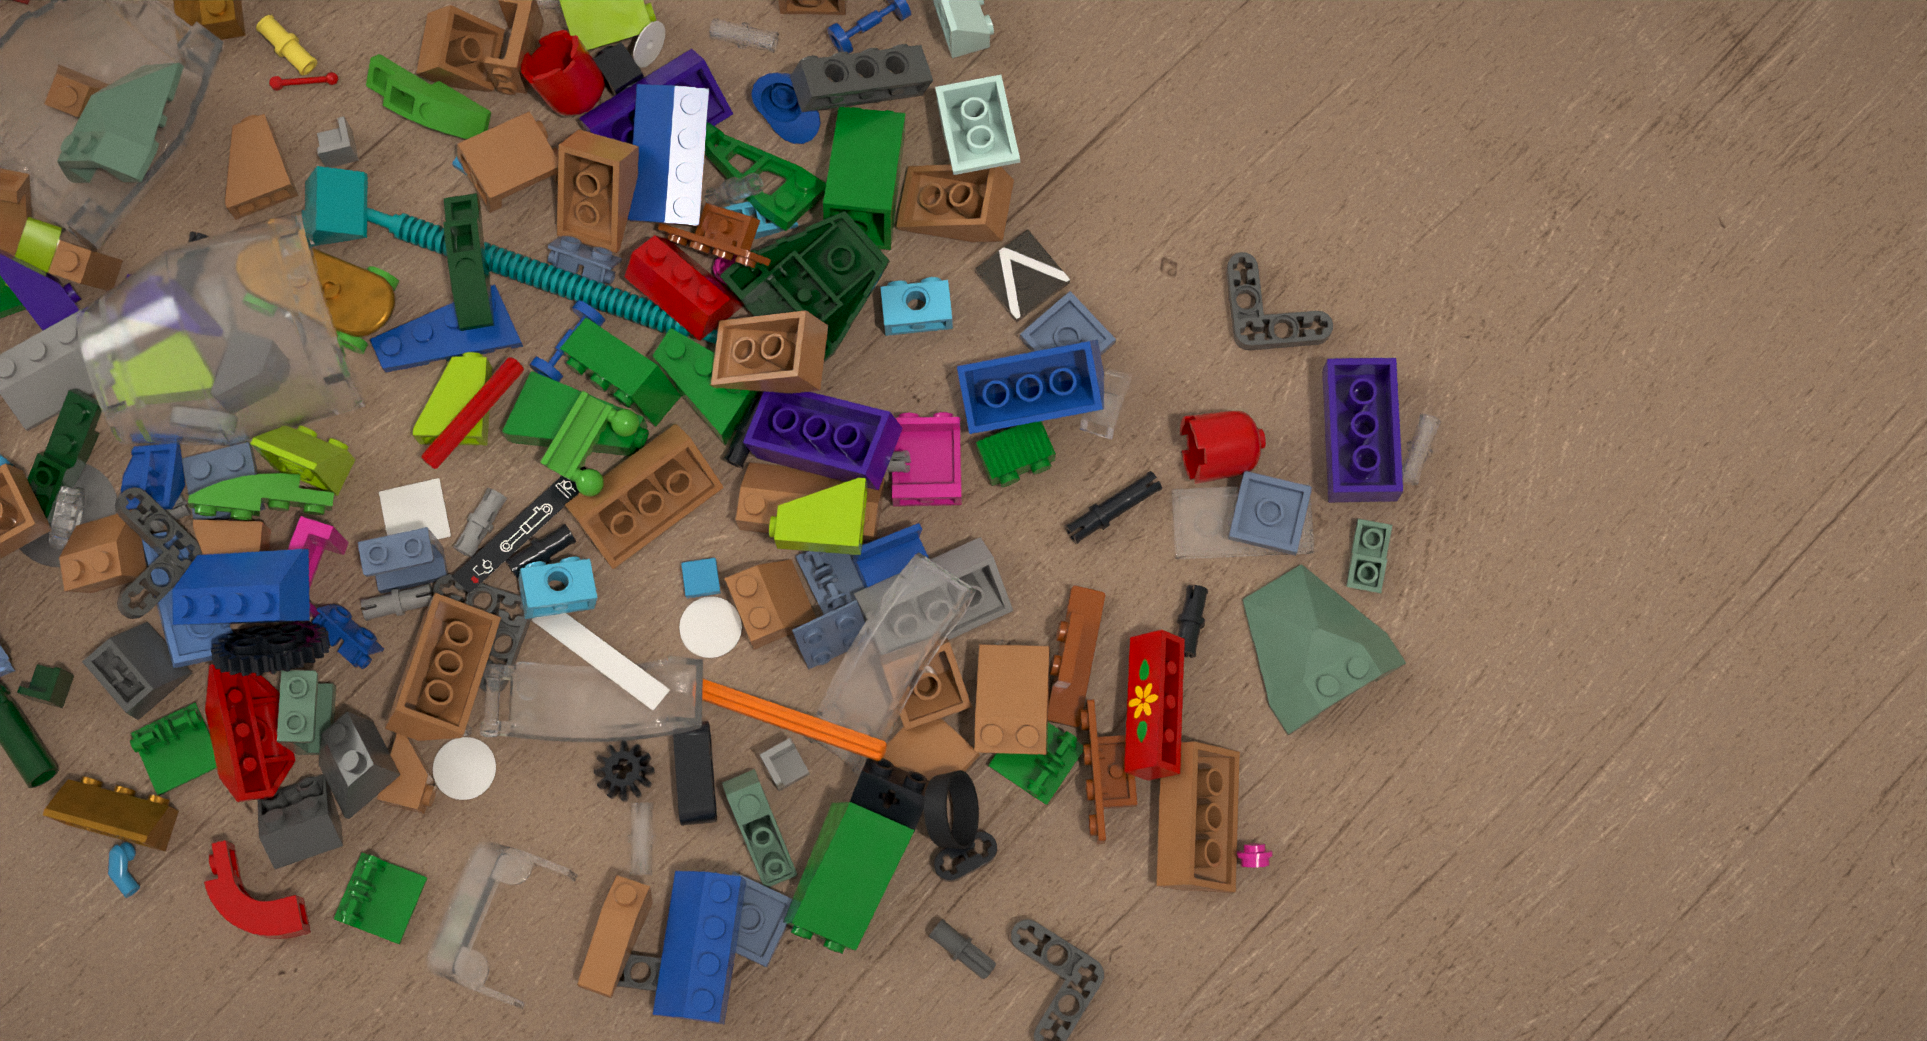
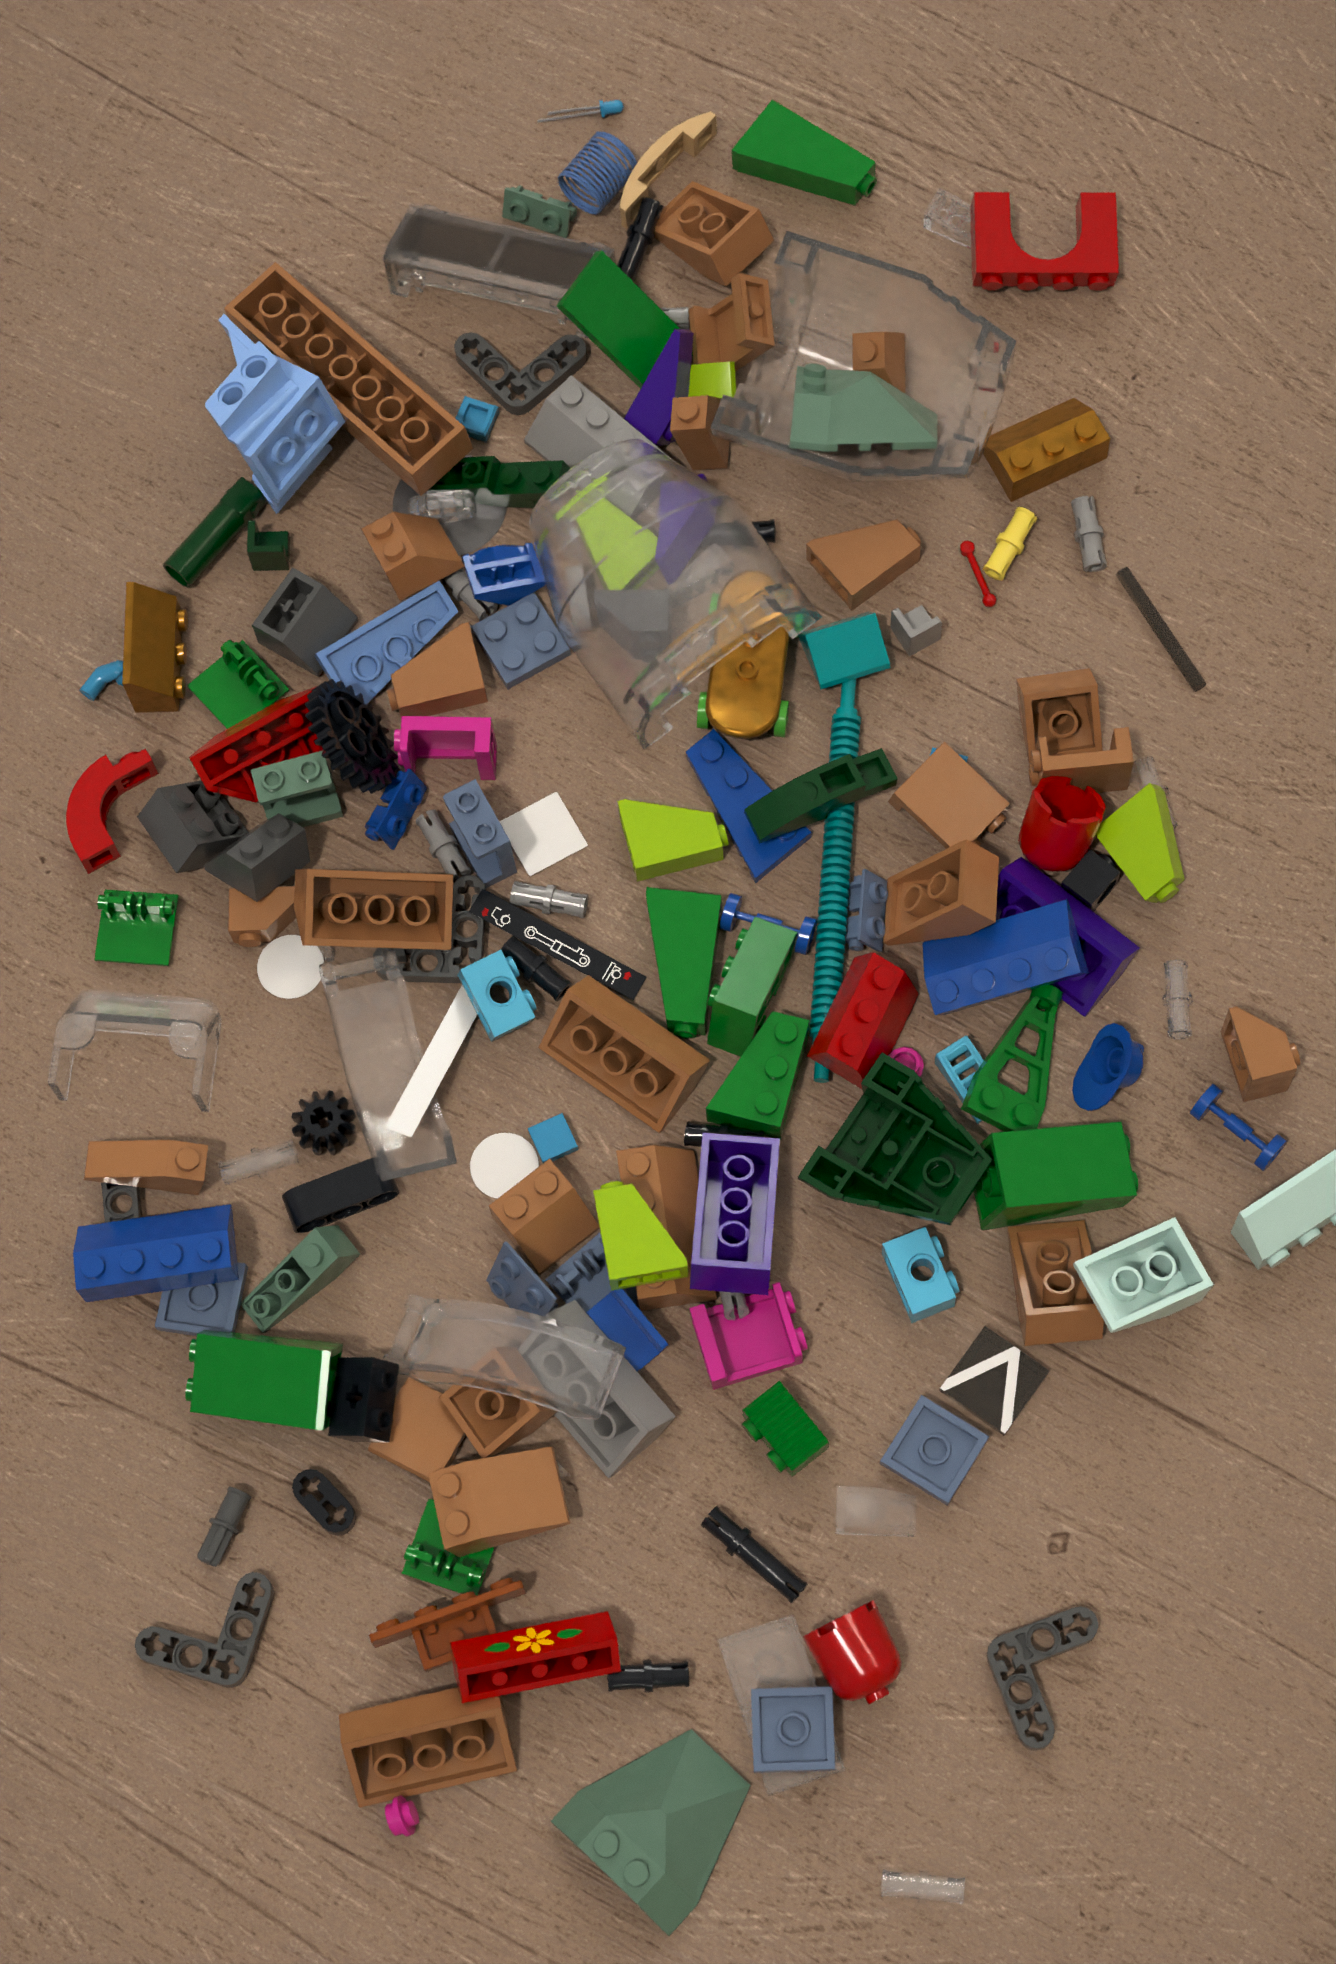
camera: 80 degrees right, 5 degrees down
(167, 558) = (417, 610): dark grey beam -> none
(244, 588) = (398, 688): blue slope -> none
(245, 494) = (507, 664): bright green slope -> none
(300, 452) = (563, 705): lime slope -> none
(425, 103) = (985, 704): bright green slope -> none
(472, 413) = (655, 851): red axle -> none
(578, 436) = (659, 963): bright green gear -> none
(649, 44) = (1129, 902): white piece -> none
(725, 232) = (927, 1043): dark orange bracket -> none
(734, 190) = (987, 1040): clear pin -> none
(770, 353) = (804, 1129): medium nougat slope -> none
(784, 764) = (371, 1282): light grey panel -> none
(793, 721) = (417, 1274): orange axle -> none
(816, 92) = (1121, 1092): dark grey brick -> none
(964, 808) = (364, 1489): black tyre -> none
(1032, 386) = (859, 1423): blue slope -> none
(1075, 655) = (574, 1557): dark orange bracket -> none
(1362, 430) = (922, 1811): dark purple brick -> none
(1369, 555) = (781, 1860): sand green slope -> none

